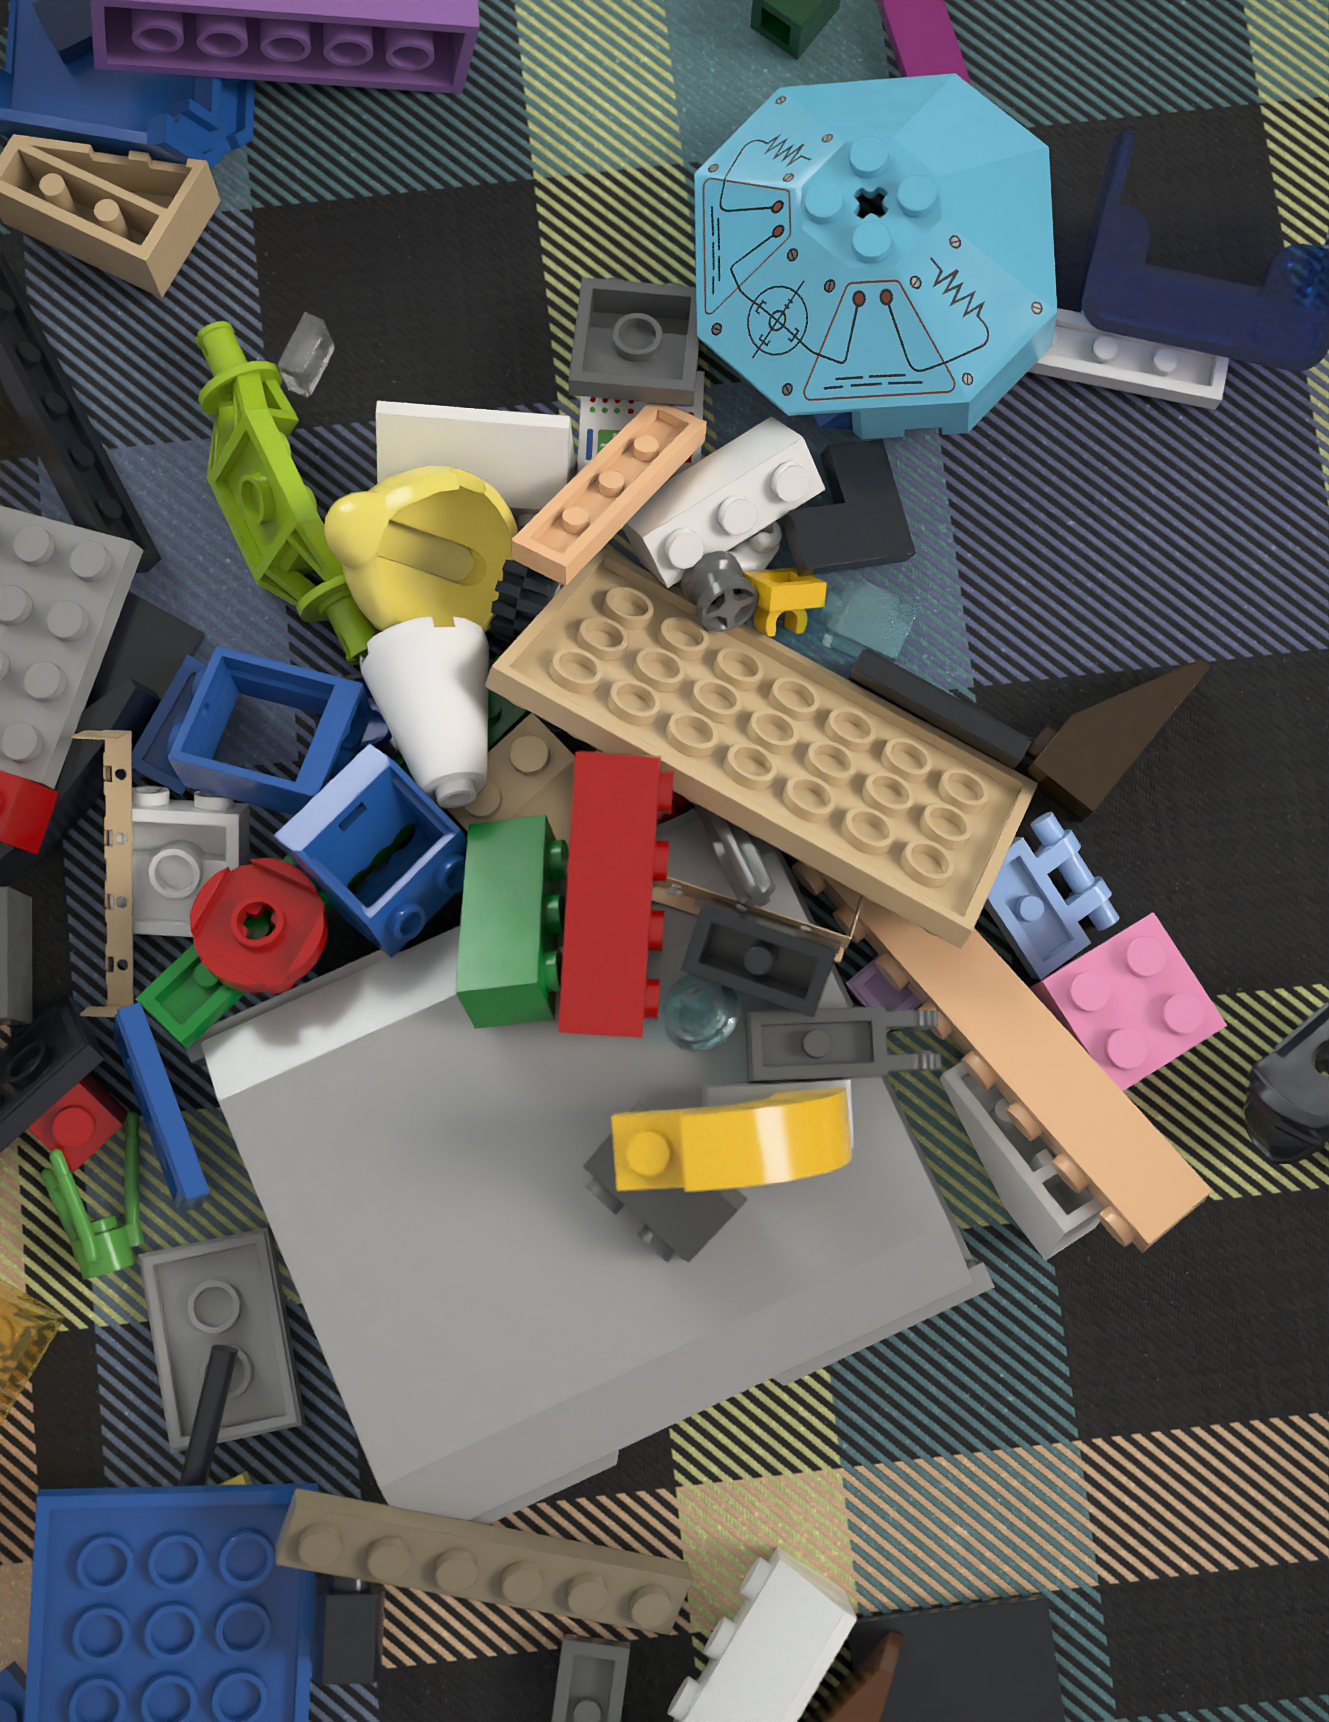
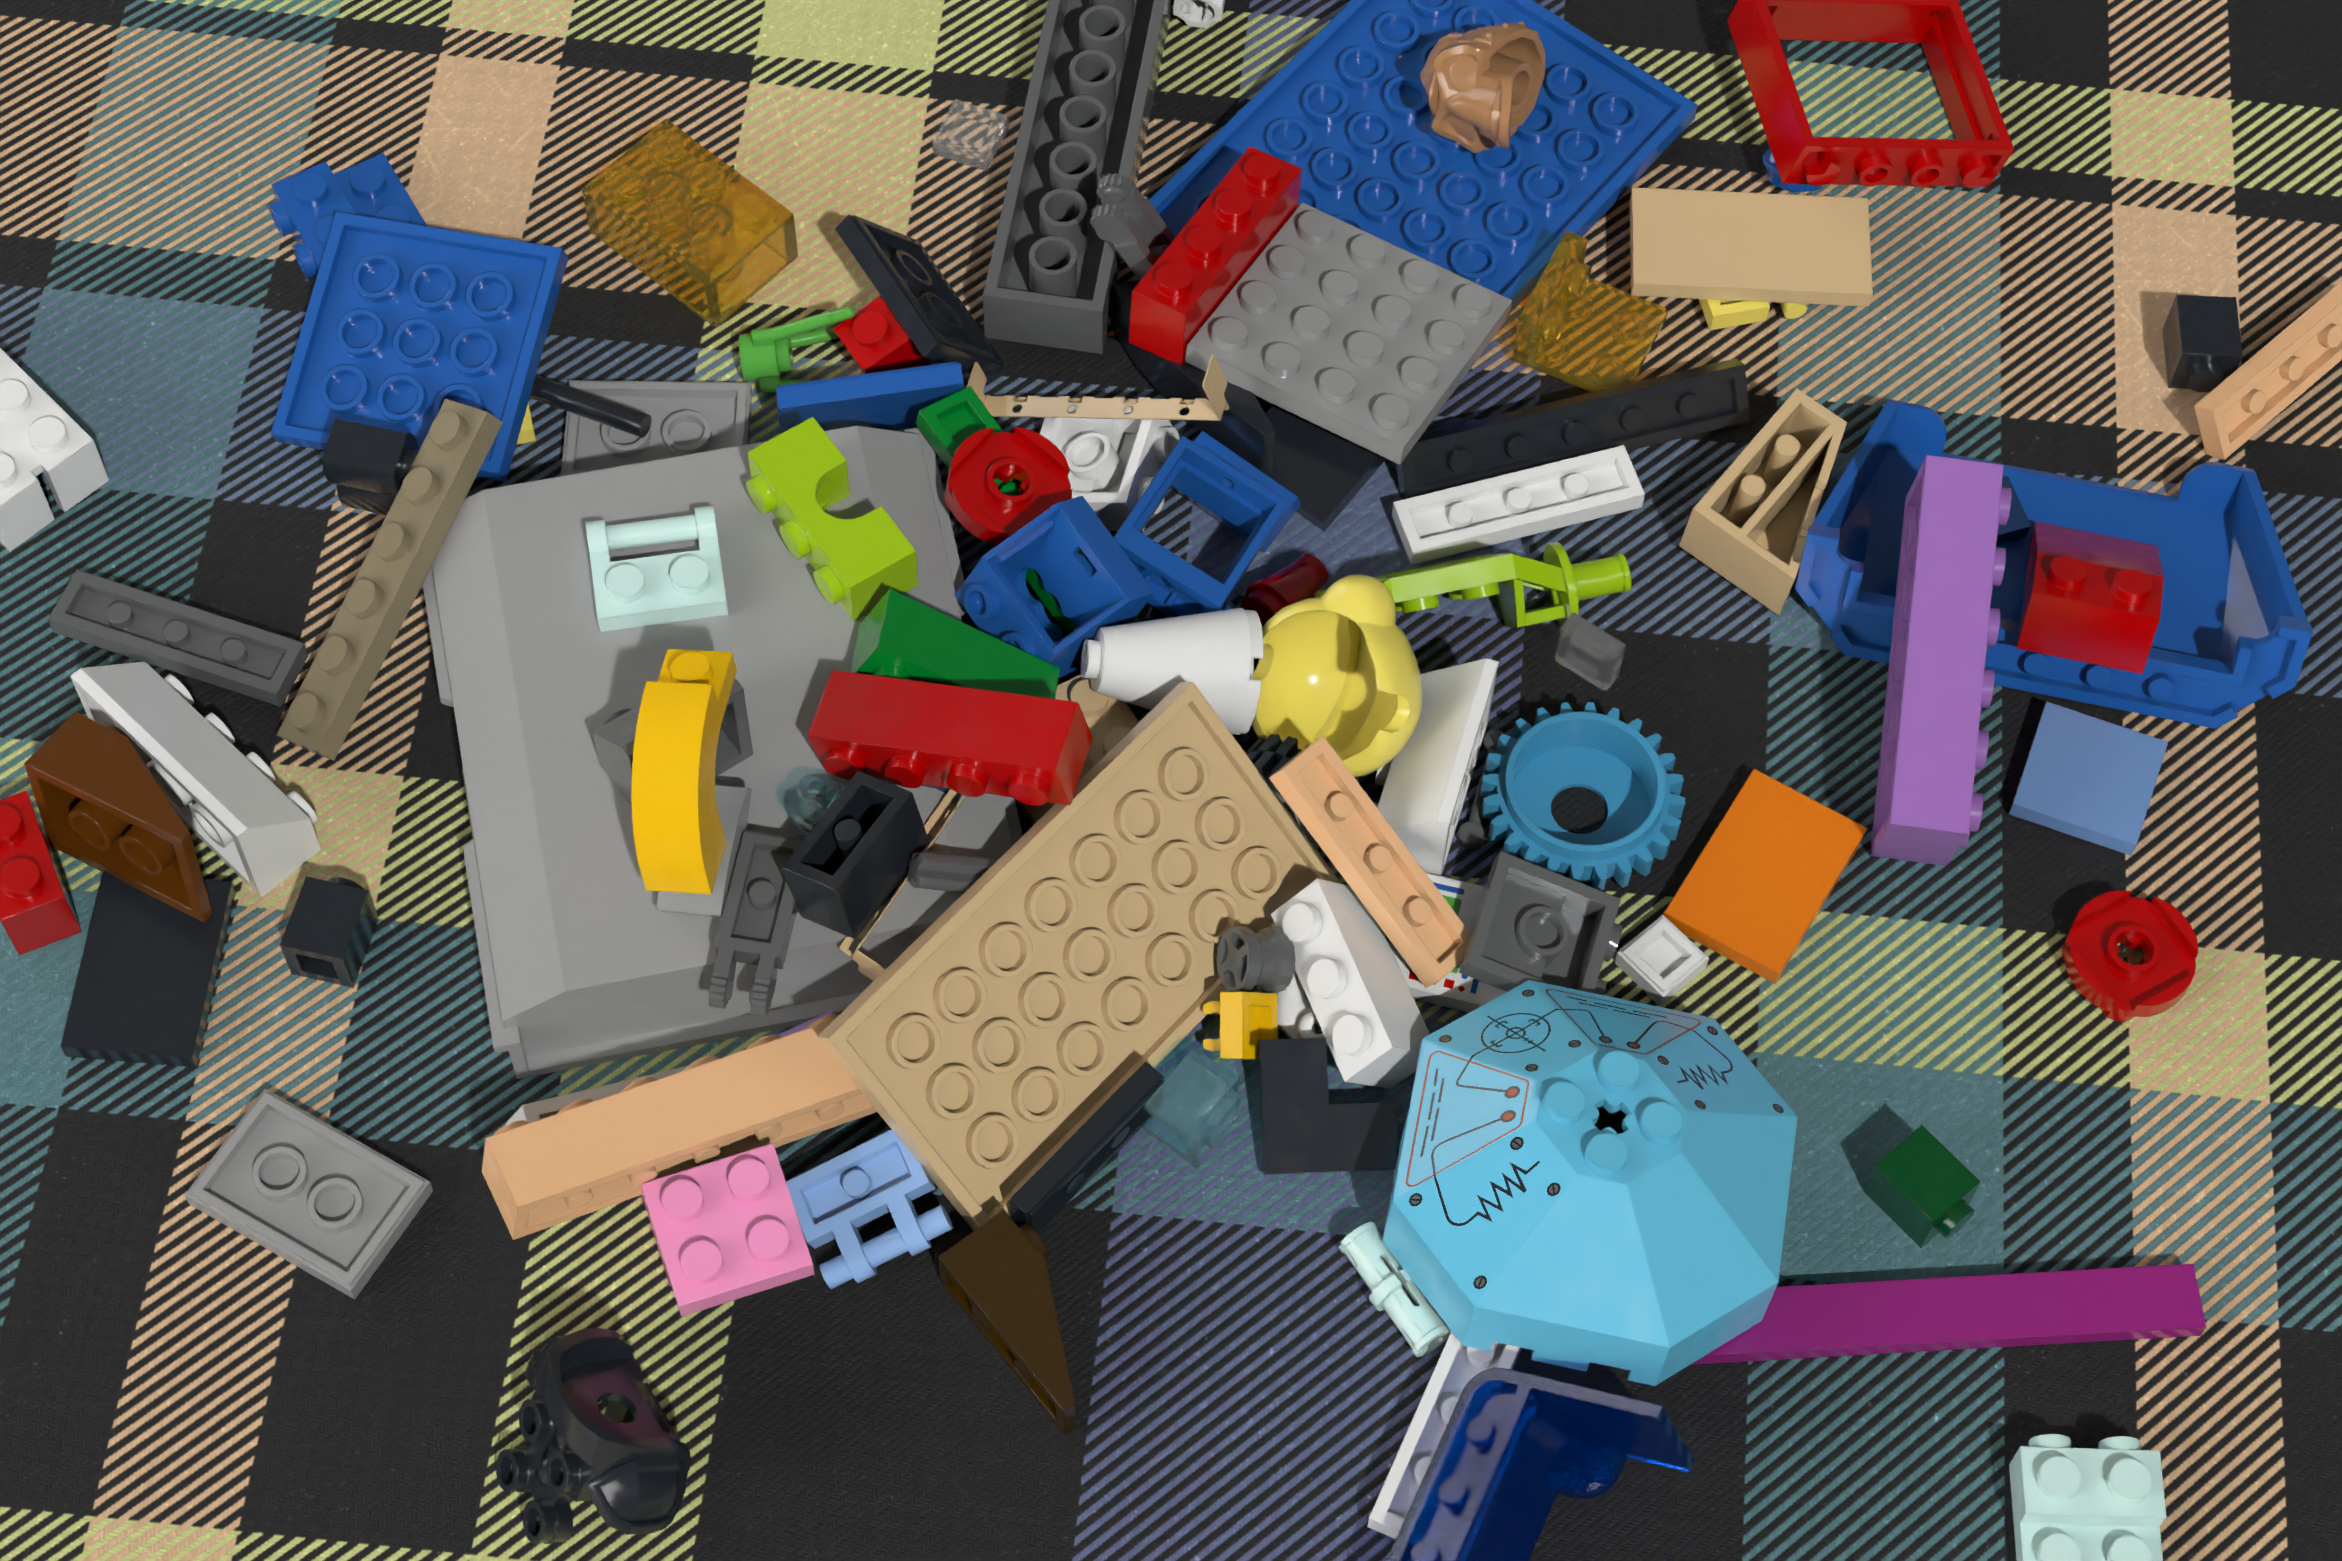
camera: 100 degrees right, 20 degrees down
(146, 451) = (1517, 504): none -> white plate
(296, 646) = (1285, 587): none -> red cone
(320, 1141) = (852, 559): none -> lime arch
(459, 293) = (1591, 754): none -> dark azure gear
(468, 1256) = (658, 586): none -> light aqua plate
(508, 174) = (1764, 875): none -> orange tile
(614, 248) = (1661, 960): none -> white tile
(881, 1502) = (329, 930): none -> black brick
(1001, 423) = (1394, 1290): none -> light aqua pin
(1148, 1436) = (309, 1193): none -> light grey tile

